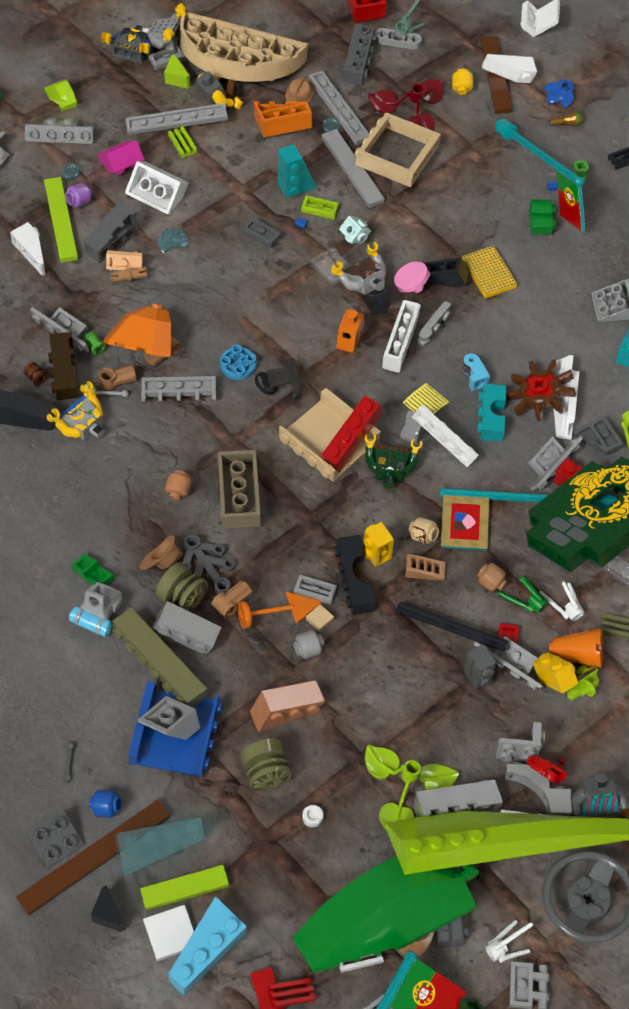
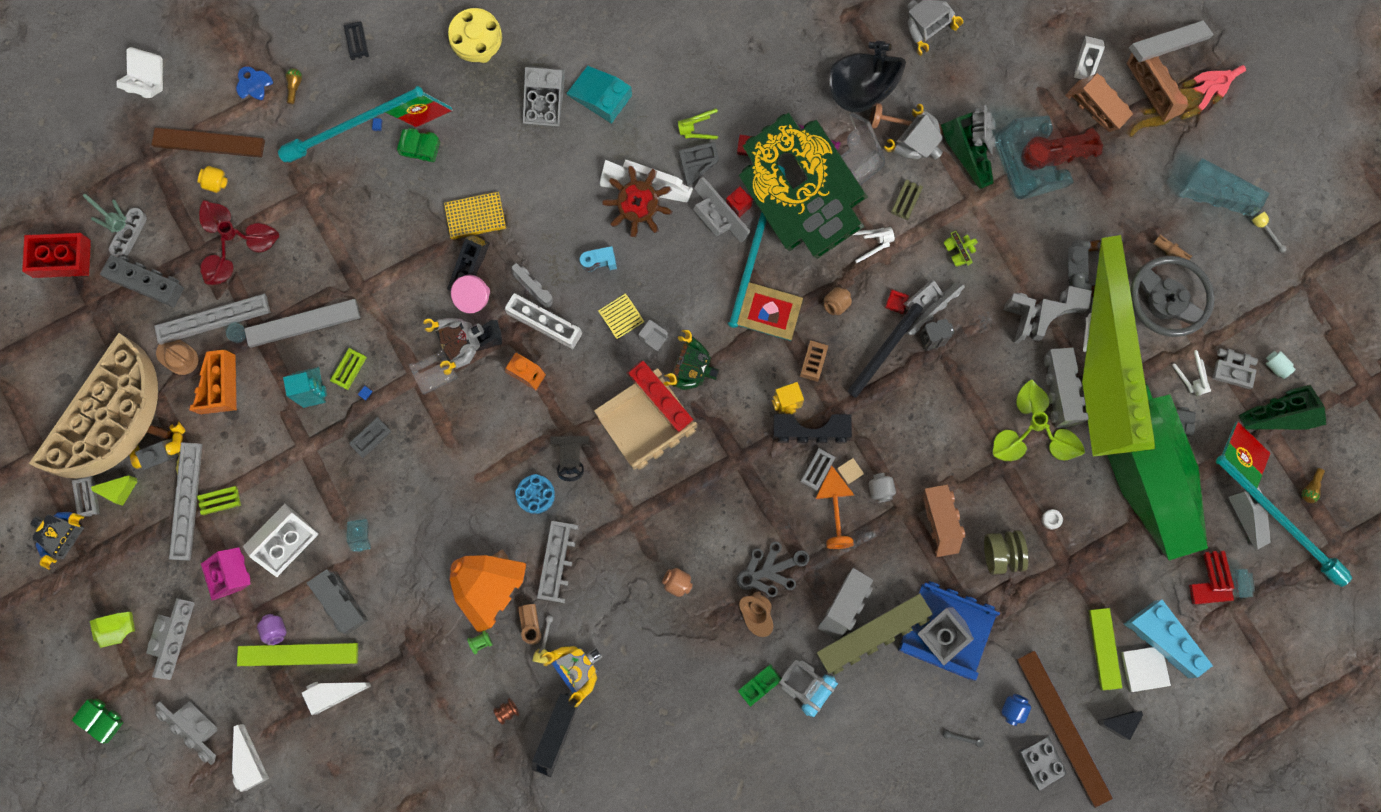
camera: 75 degrees left, 20 degrees up
(63, 322) = (451, 669): light grey bracket -> none
(64, 366) = (509, 680): dark brown wedge -> none
(70, 171) = (230, 634): clear light blue tile -> none
(121, 260) = (378, 586): light nougat tile -> none
(128, 274) = (395, 590): medium nougat pin -> none
(150, 844) = (1066, 667): clear light blue wedge -> none
(166, 32) = (49, 491): light grey torso -> none
(181, 587) = (805, 598): olive wheel -> none
(227, 602) = (820, 556): medium nougat piece -> none
(239, 489) = (697, 521): dark tan brick -> none
(355, 230) = (394, 338): light aqua brick -> none
(392, 170) = (315, 291): tan window -> none
(423, 530) = (775, 352): tan head -> none
(444, 435) = (680, 303): white plate -> none
(491, 425) = (666, 261): teal arch -> none
(515, 68) = (209, 121): white slope -> none
(536, 601) = (868, 267): green plant -> none
(542, 767) = (1051, 302): red helmet -> none
(555, 672) = (954, 268): yellow brick -> none
(580, 648) = (928, 240): orange cone -> none
(581, 168) = (370, 96): bright green bush -> none

